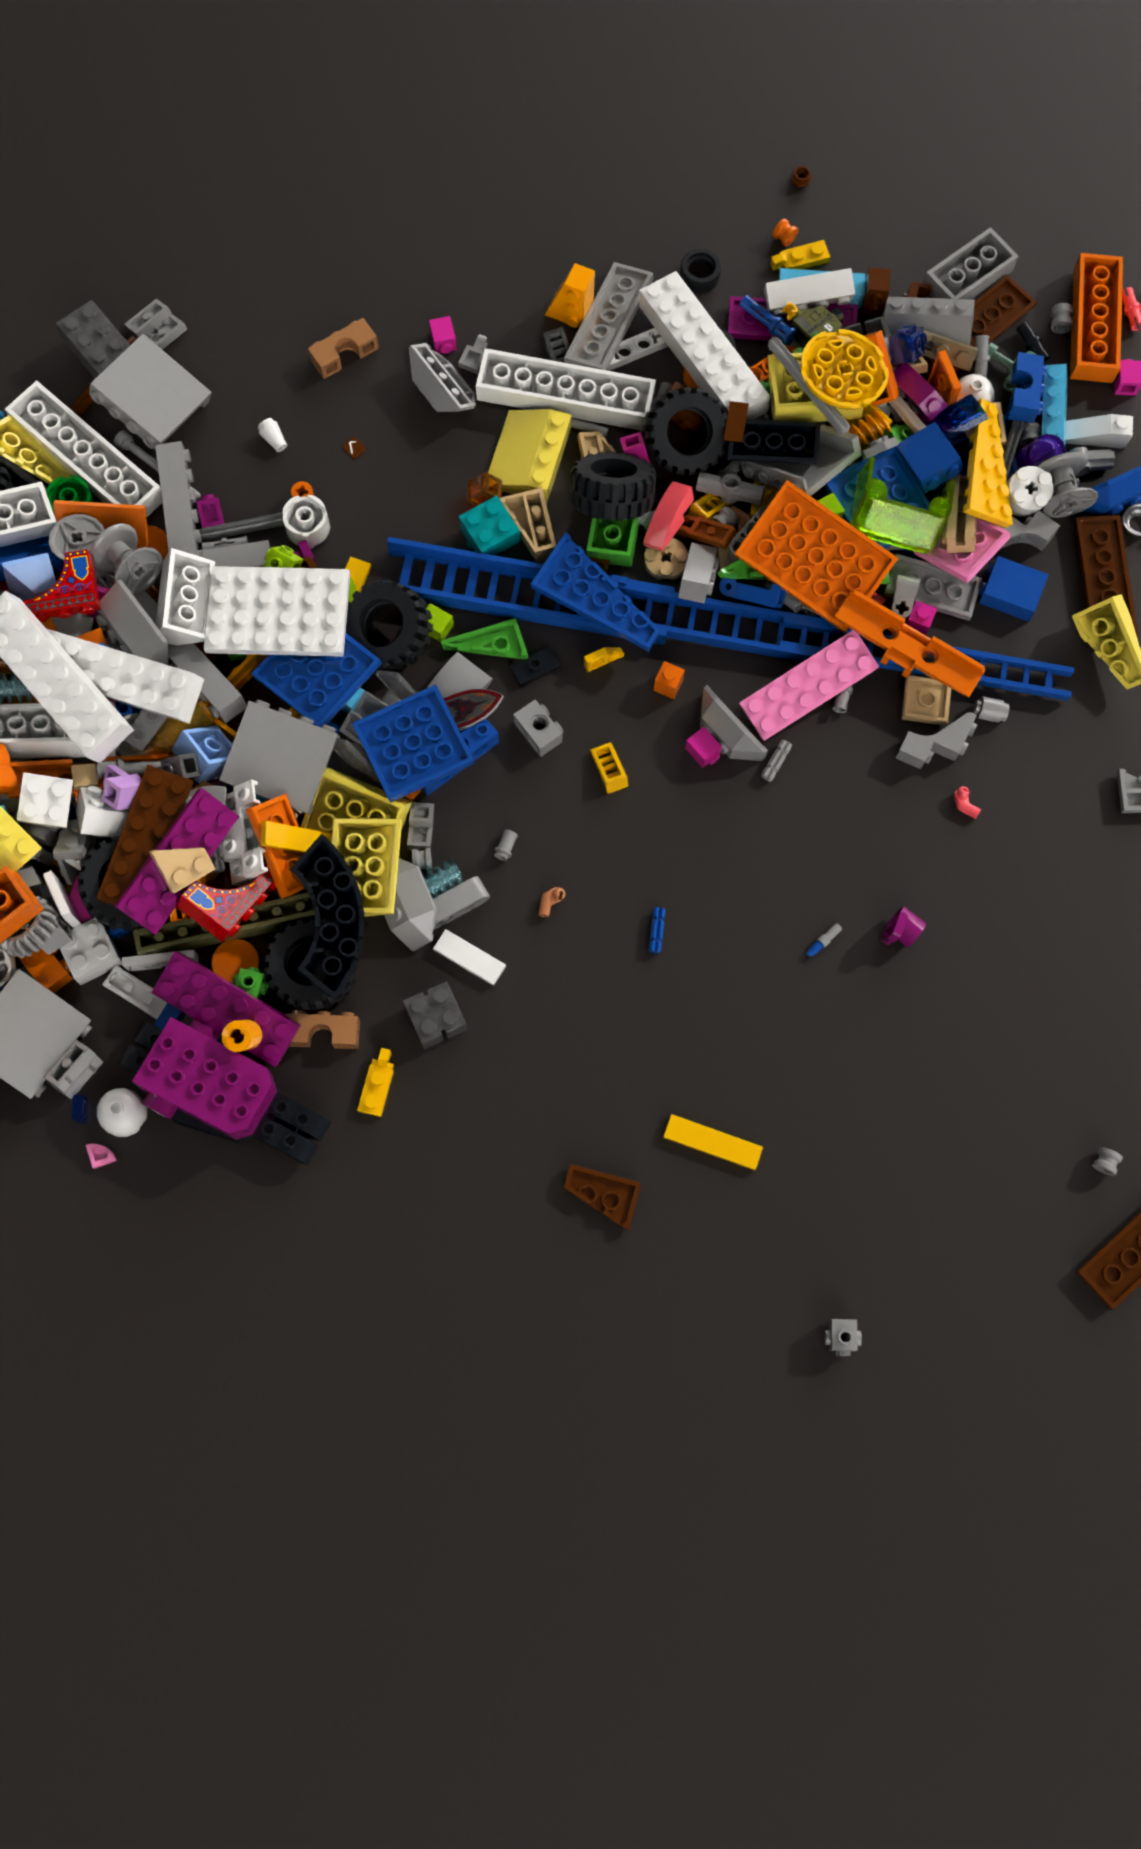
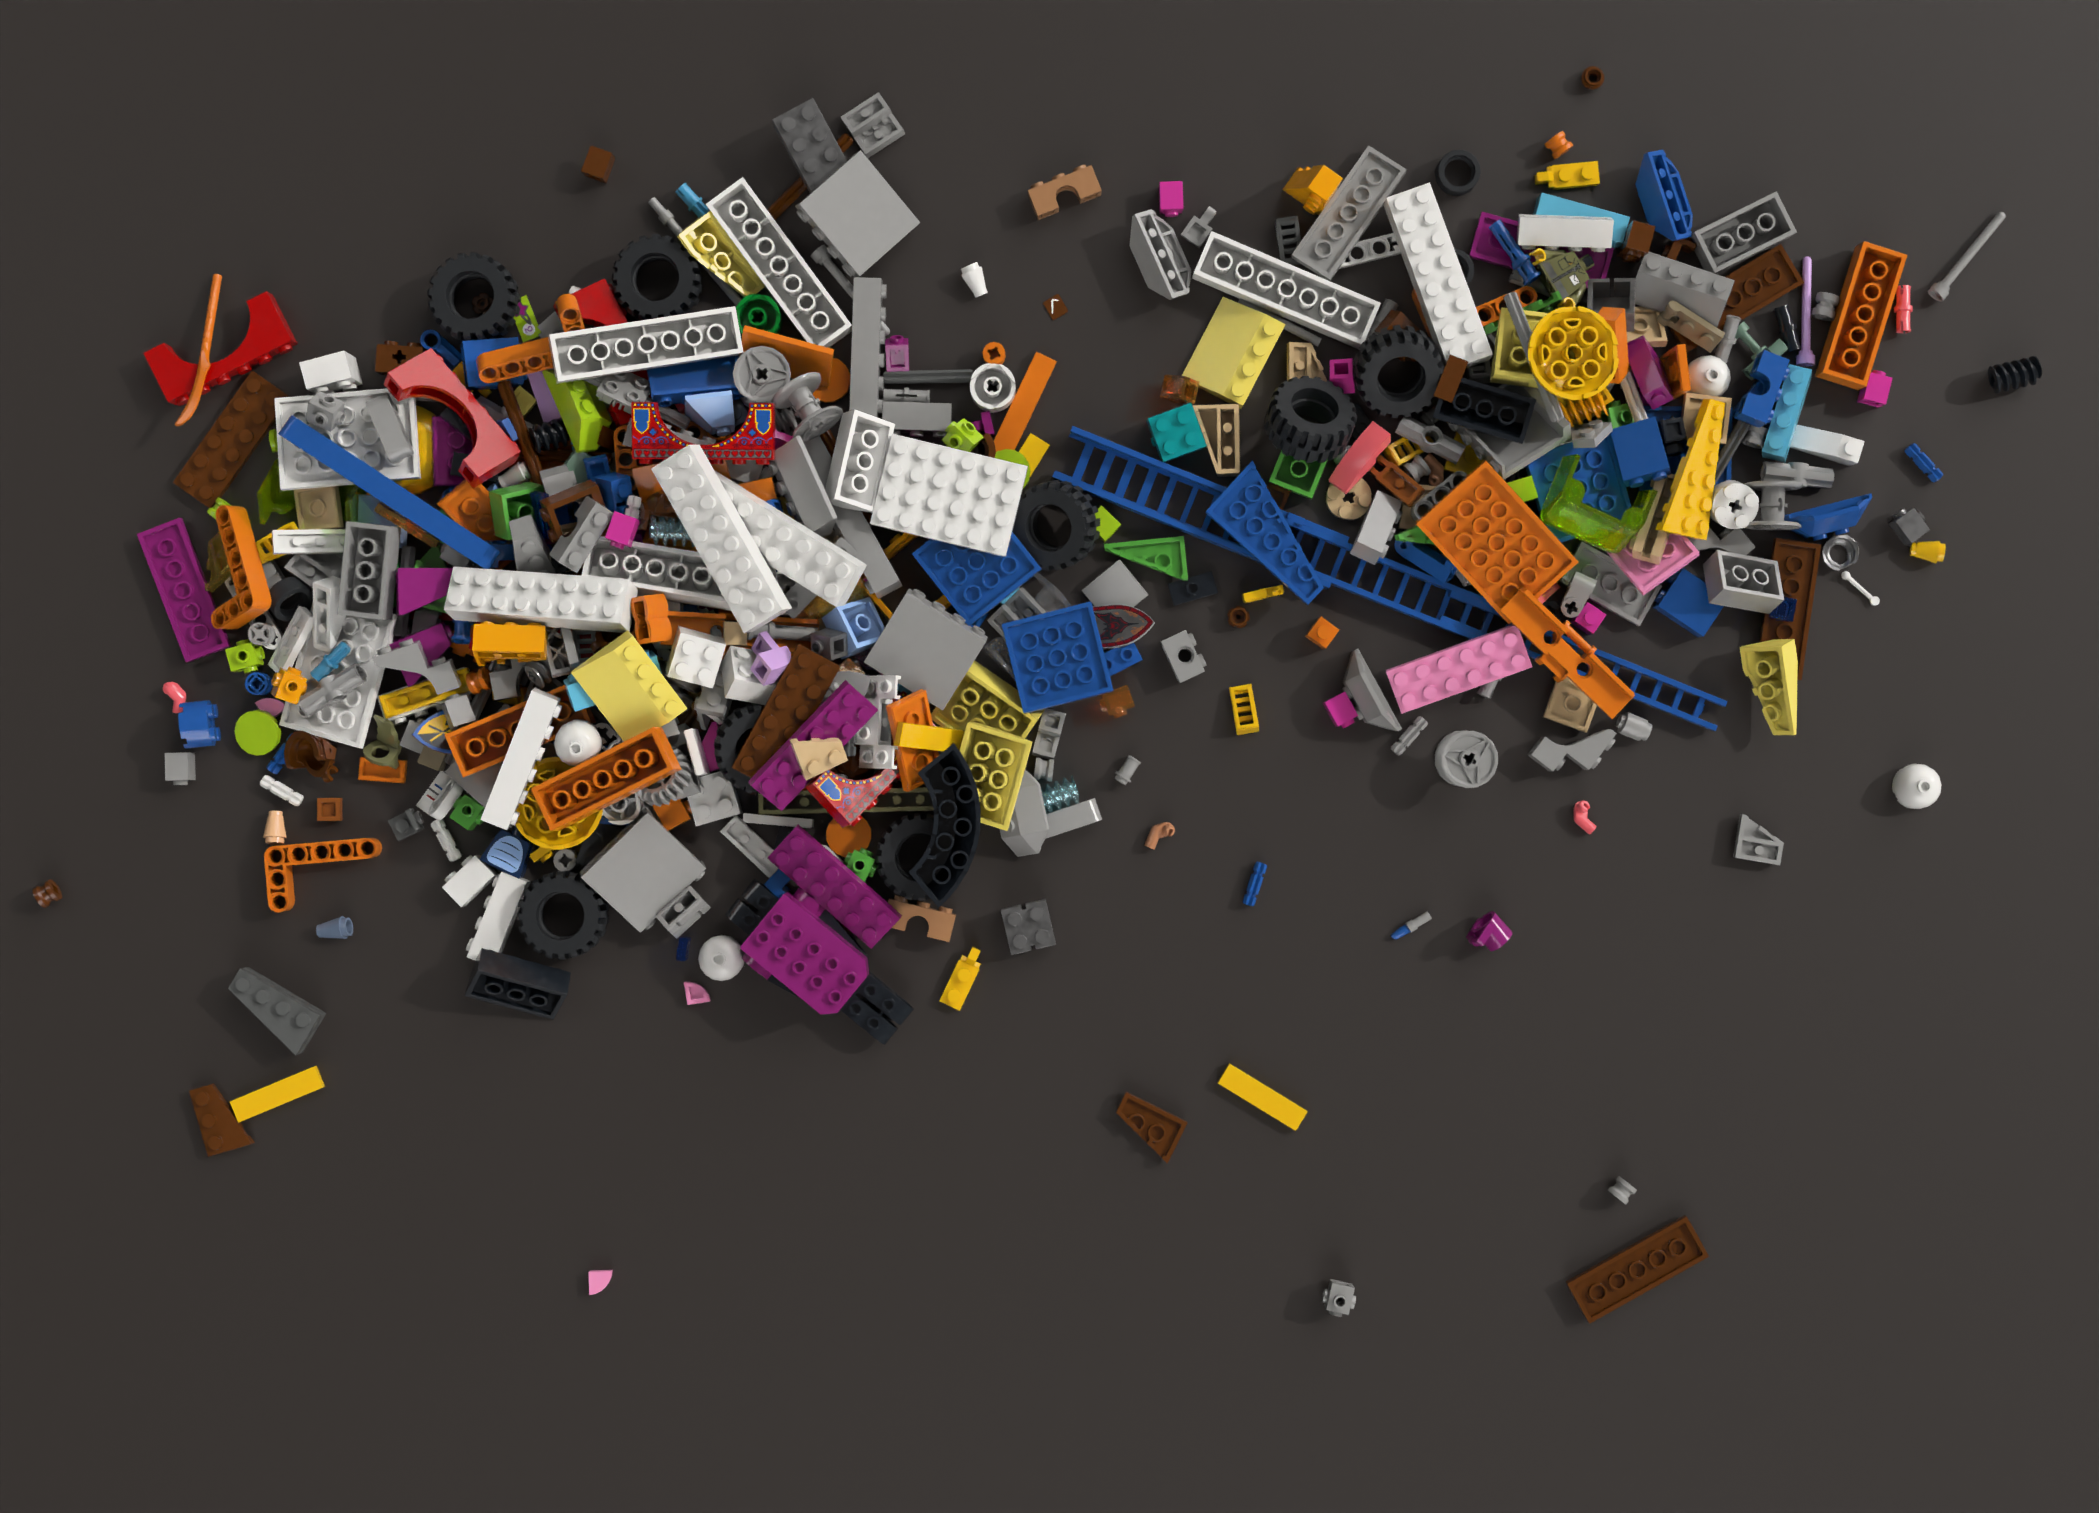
camera: 15 degrees right, 15 degrees up
(35, 1489) = (598, 1280): none -> bright pink tile
(236, 1043) = (846, 923): light orange piece -> none
(341, 528) = (1024, 402): none -> orange tile
(469, 957) = (1071, 874): white tile -> none
(482, 781) = (1117, 702): none -> clear orange brick
(584, 677) = (1239, 610): none -> reddish brown plate
(837, 765) = (1479, 751): none -> light grey piece
(887, 251) = (1664, 196): none -> blue wedge
(907, 344) = (1650, 320): clear blue brick -> none
(960, 416) = (1683, 416): clear blue tile -> none
(1040, 450) = (1757, 464): dark purple piece -> none
(1055, 358) = (1806, 356): none -> lavender piece
(1058, 554) = (1743, 582): none -> light grey brick
(1101, 575) = (1785, 610): none -> clear blue tile

